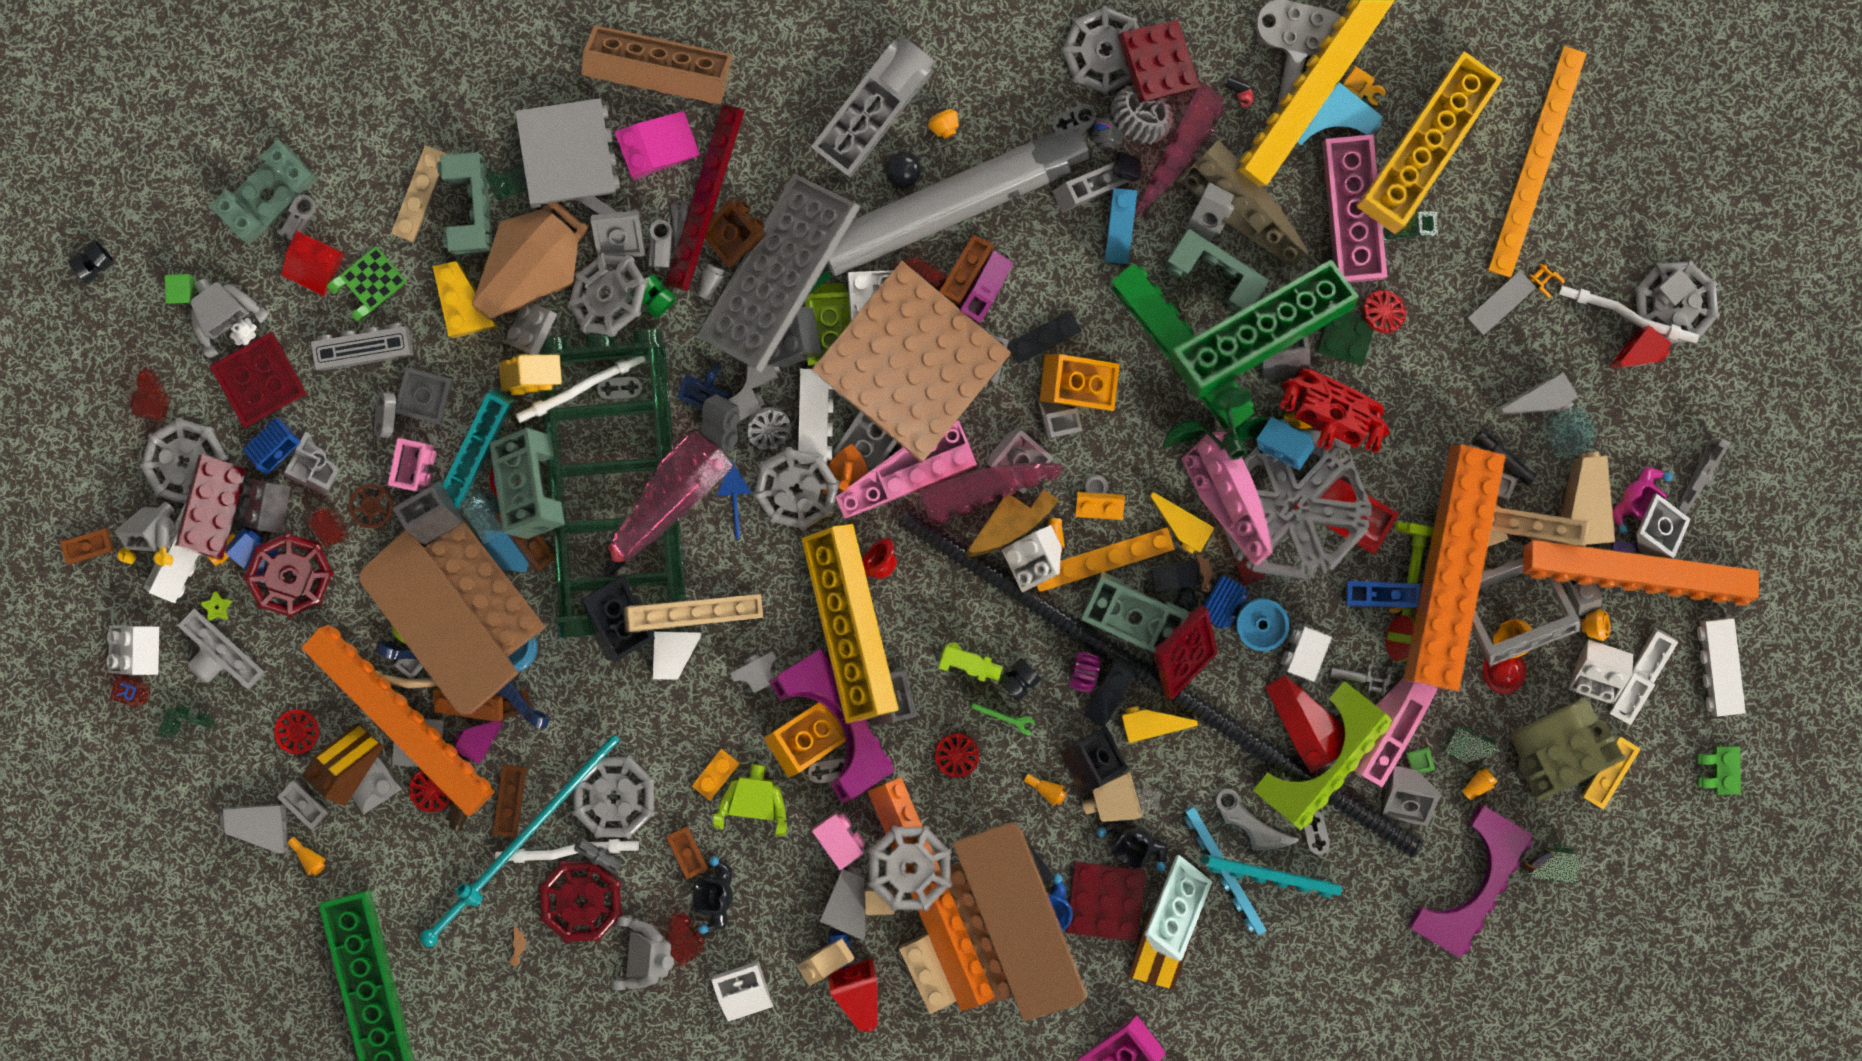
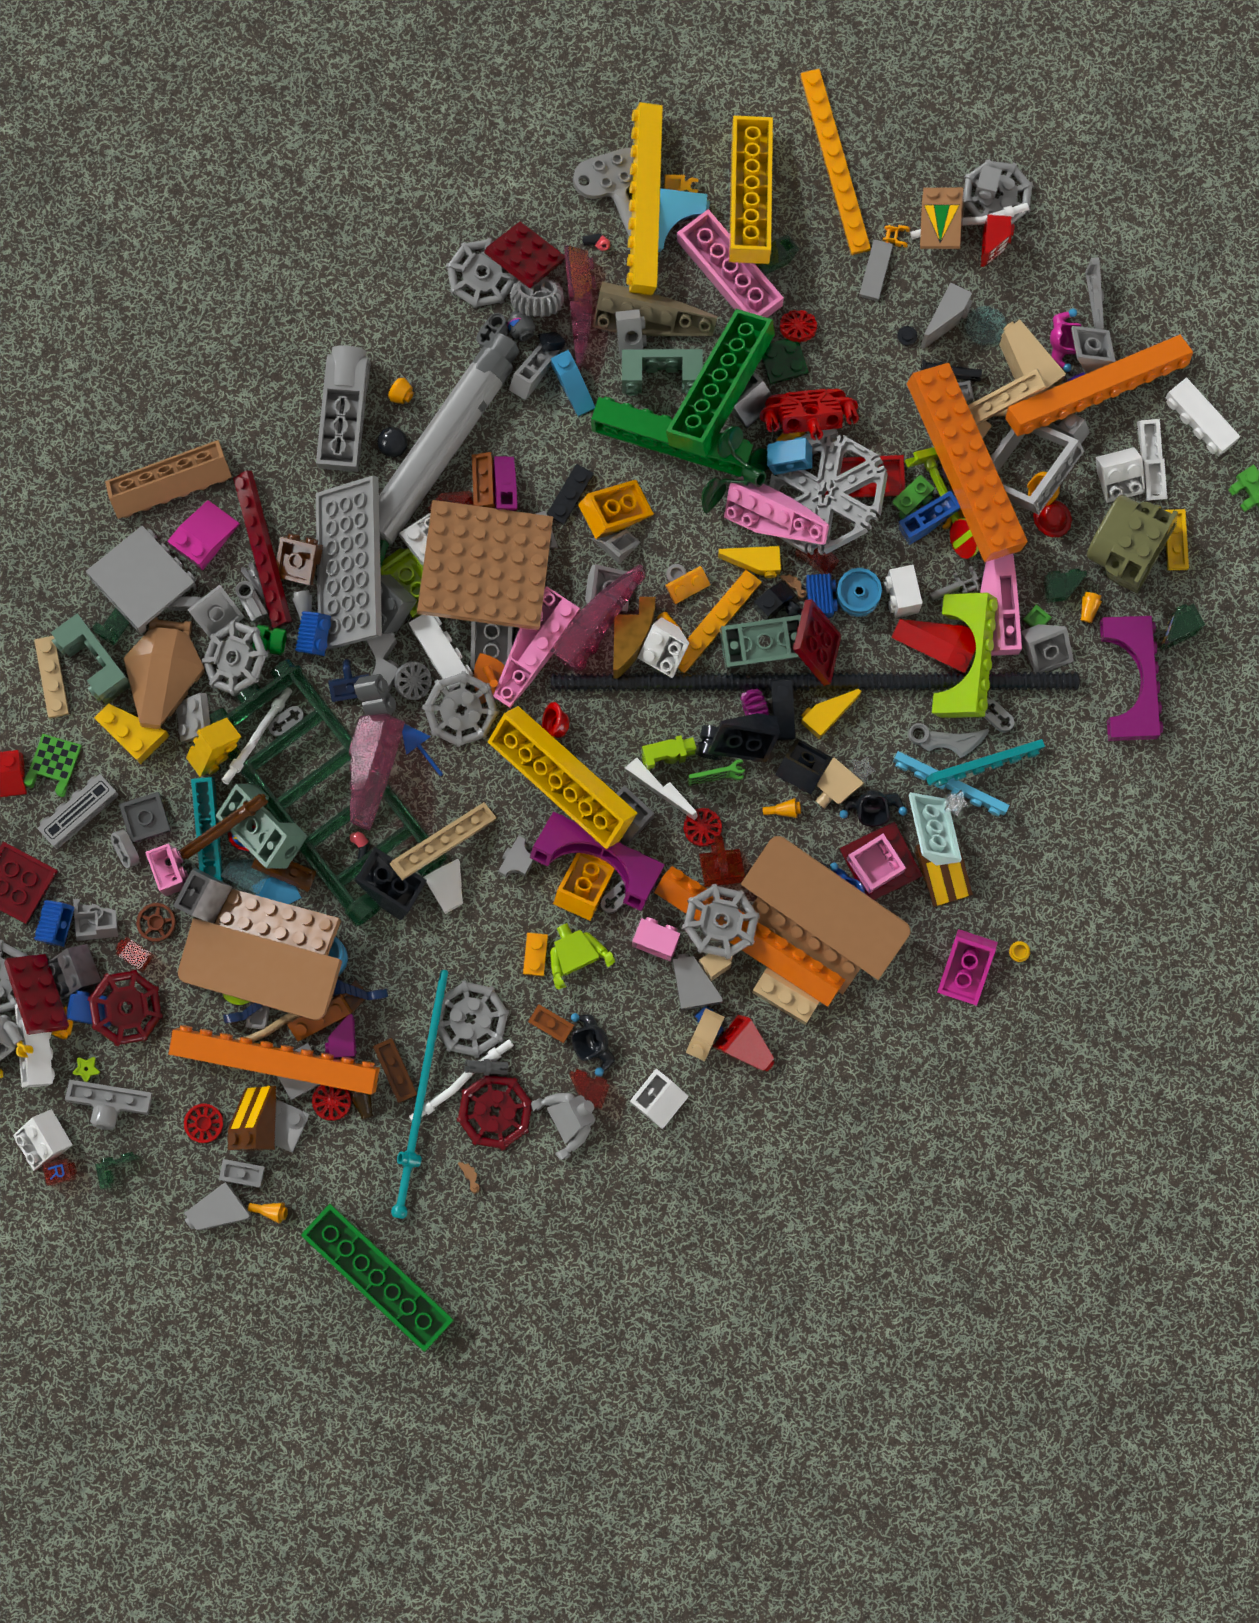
camera: 35 degrees left, 10 degrees down
(520, 464) = (248, 809): none -> reddish brown axle
(700, 318) = (313, 633): none -> blue brick
(945, 703) = (668, 792): none -> white slope
(949, 808) = (721, 865): none -> clear red bracket
(1055, 702) = (746, 737): none -> black slope
(1098, 906) = (876, 863): none -> bright pink piece
(1215, 893) = (950, 802): none -> clear plate
(1378, 563) = (912, 497): none -> bright green bracket
(1486, 391) = (907, 335): none -> black plate
(1597, 625) = (1094, 444): light orange cone -> none
(1602, 296) = (942, 218): none -> medium nougat slope

